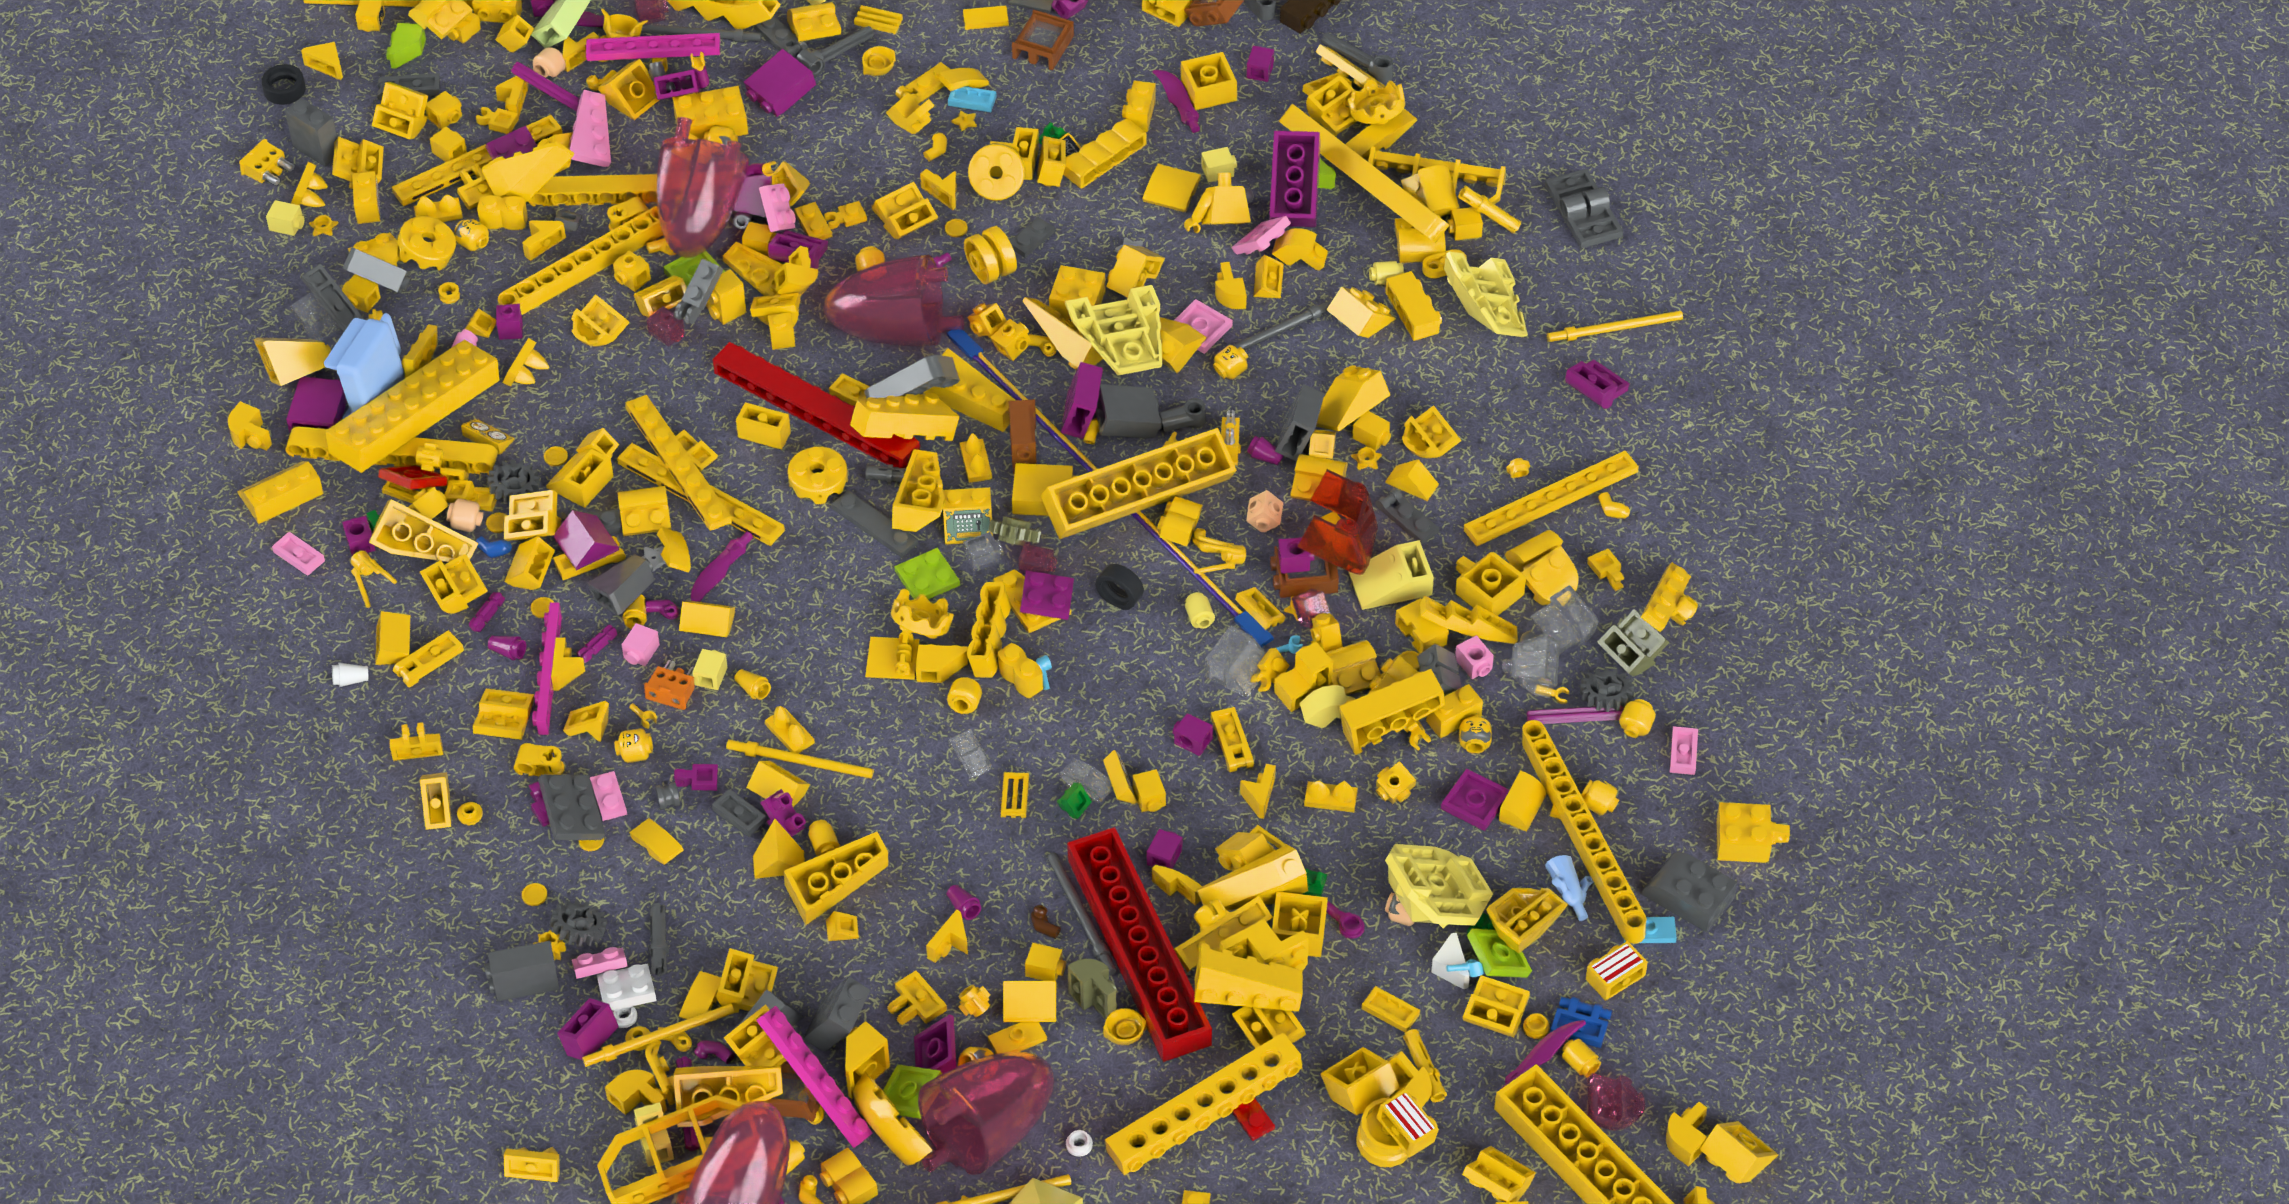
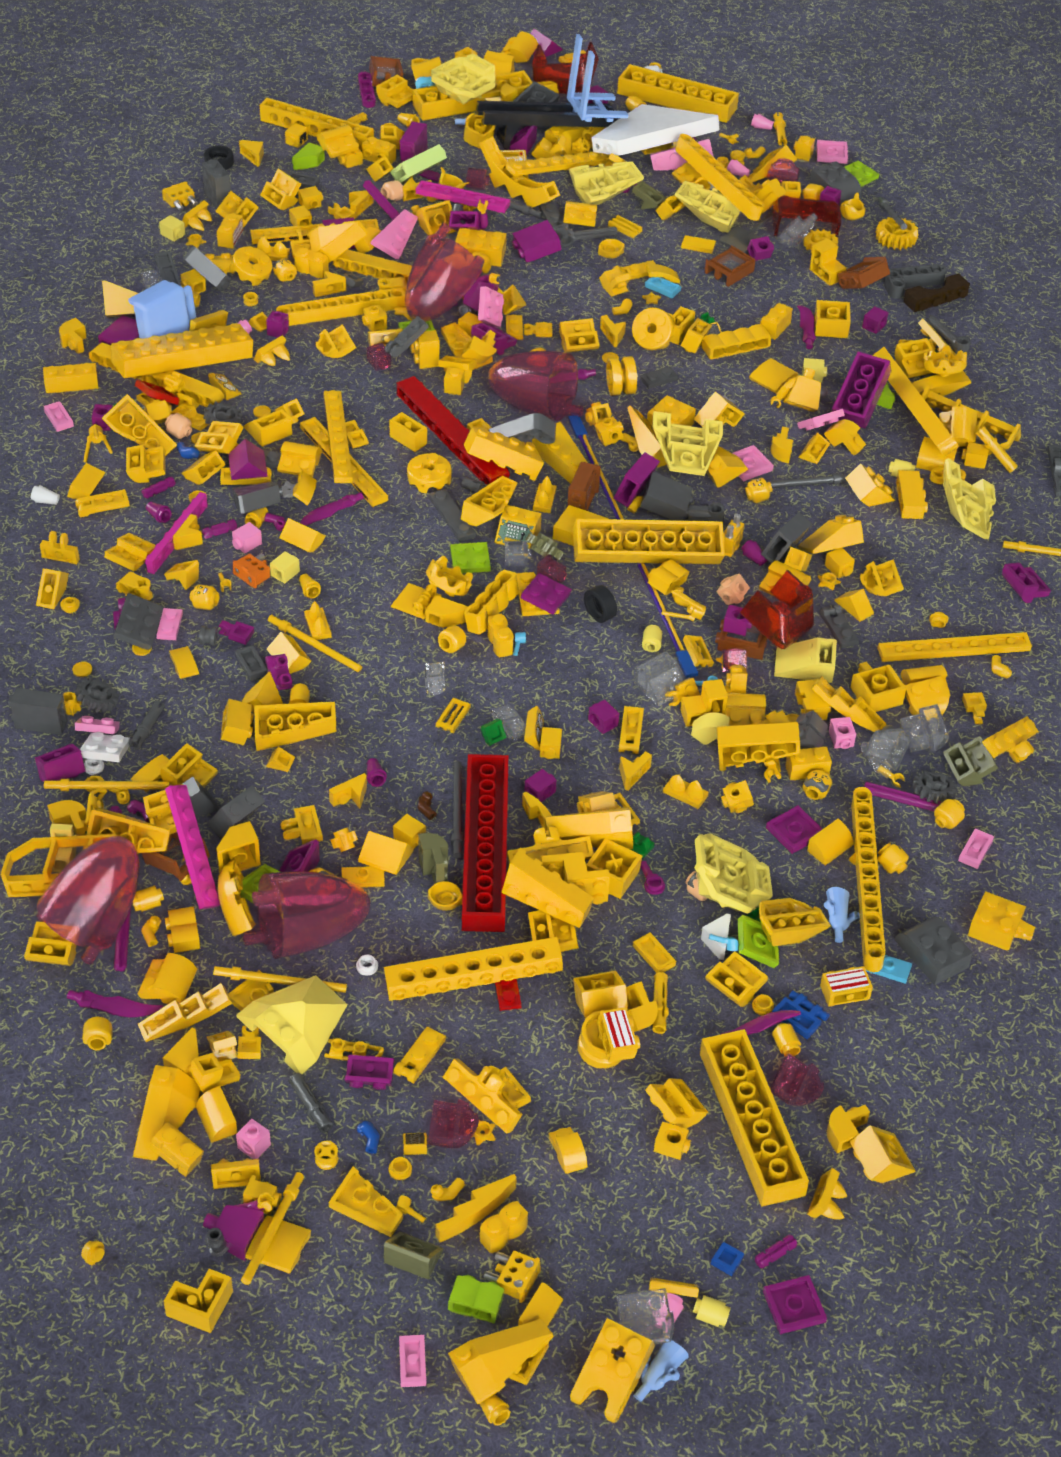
camera: 20 degrees right, 5 degrees down
(767, 898) = (237, 722): none -> yellow brick

